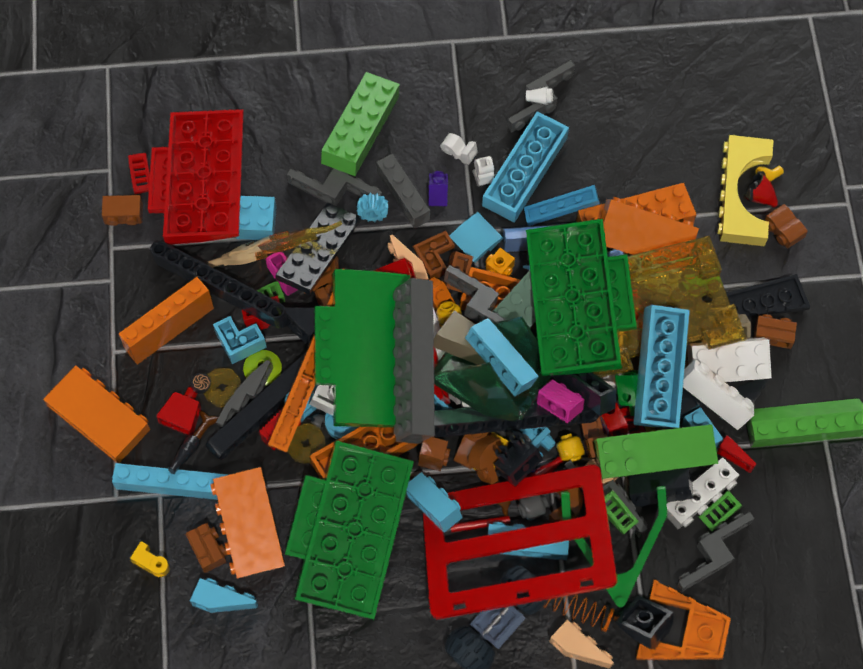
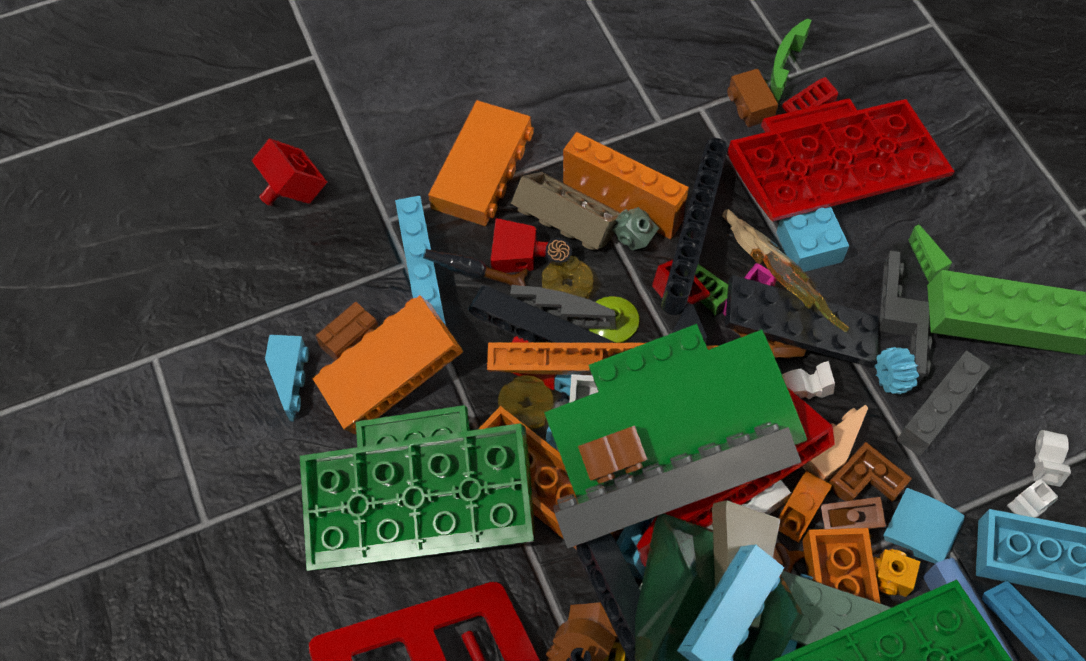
camera: 75 degrees right, 5 degrees down
(52, 555) = (287, 173): none -> red brick
(112, 187) = (793, 41): none -> bright green slope
(155, 565) = (314, 278): yellow leg -> none
(164, 367) = (565, 209): none -> dark tan slope
(201, 326) = (634, 228): none -> sand green brick
(239, 343) = (630, 276): medium azure brick -> none
(296, 153) = (928, 253): none -> bright green slope
(361, 257) = (809, 386): none -> white leg
(380, 390) = (612, 454): none -> dark orange brick
(433, 502) = (489, 593): medium azure brick -> none
(434, 454) = (561, 570): dark orange brick -> none
(438, 188) = (971, 448): dark purple slope -> none
(445, 311) = (789, 523): yellow head -> none
(483, 297) = (814, 557): dark grey bracket -> none

